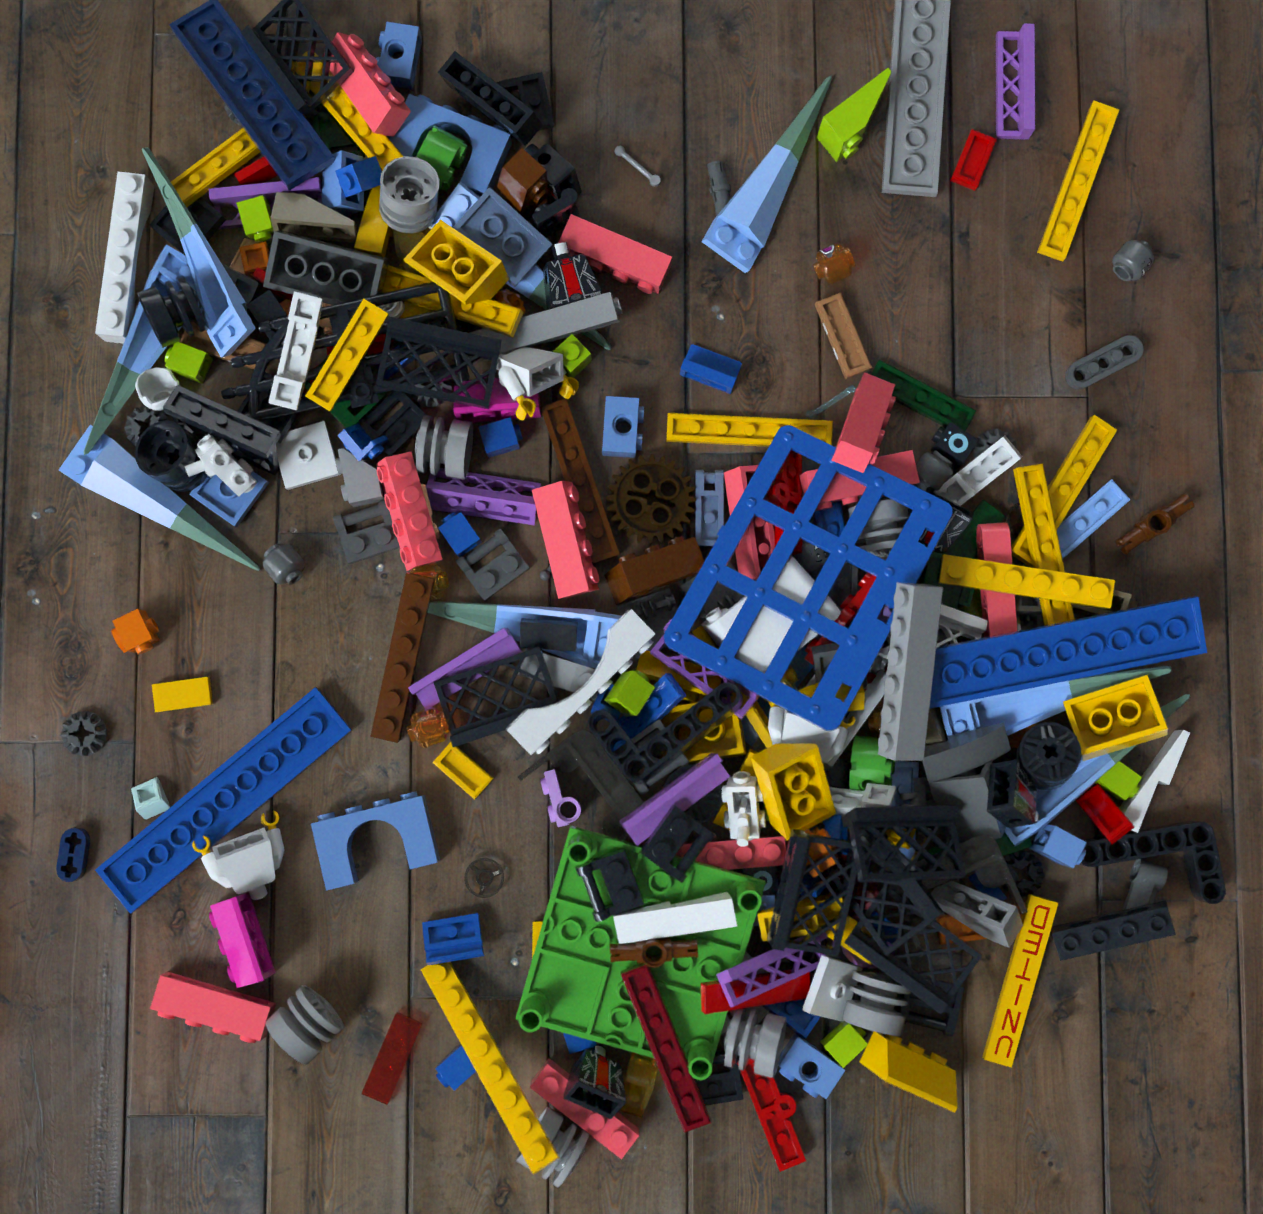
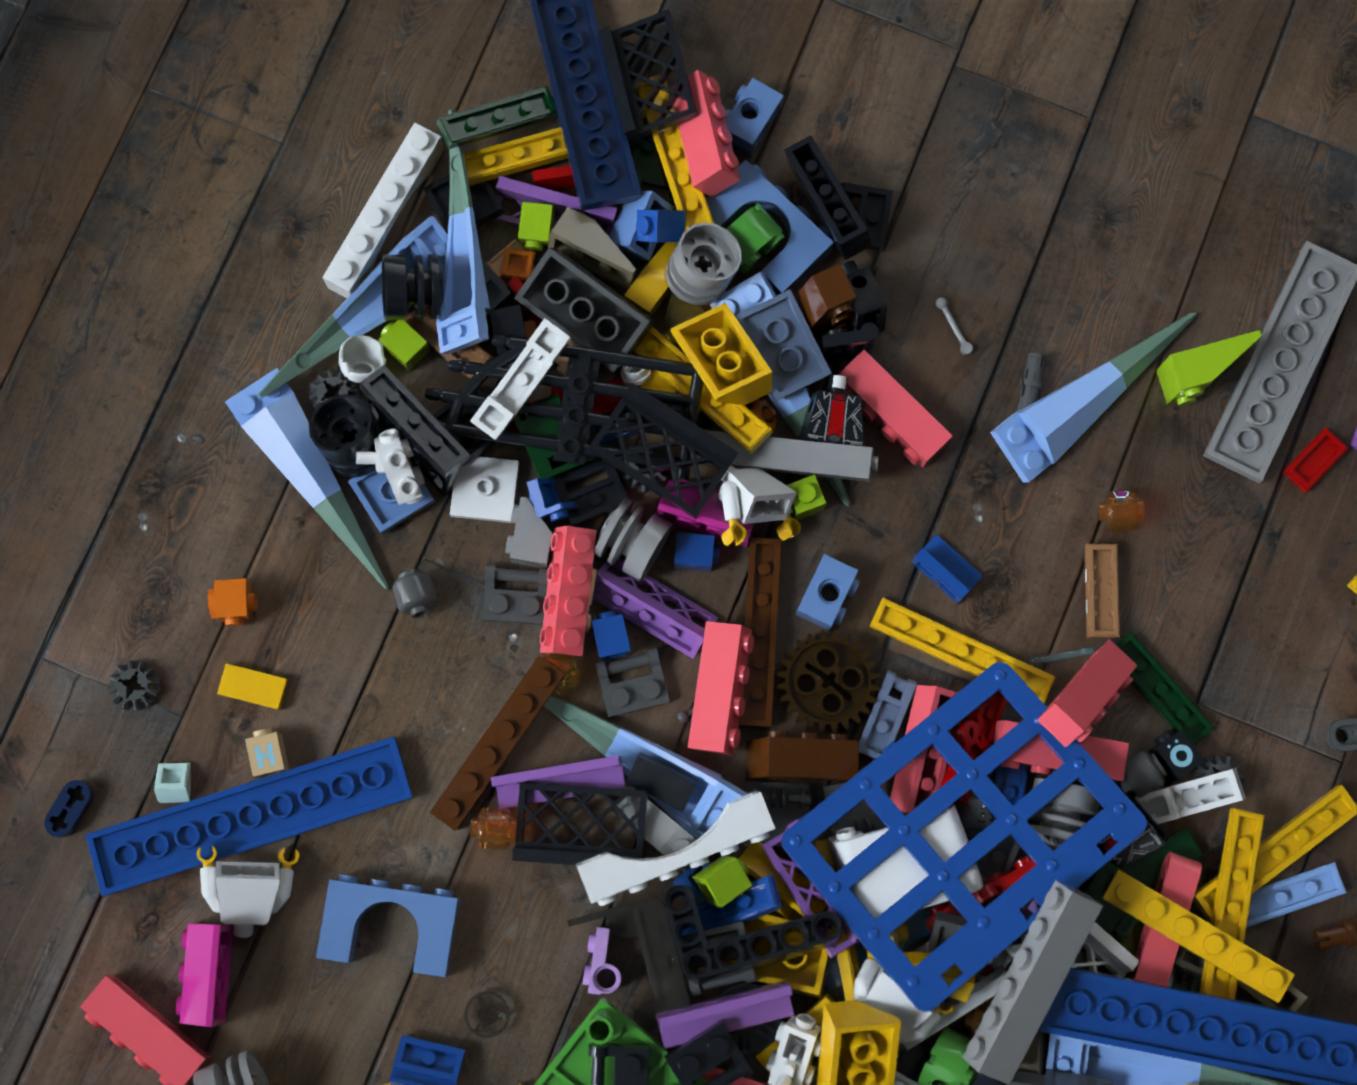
camera: 25 degrees right, 5 degrees down
(185, 139) = (497, 117): none -> dark green tile
(216, 743) = (266, 753): none -> tan brick
(347, 355) = (571, 404): yellow plate -> none
(463, 770) = (512, 889): yellow tile -> none

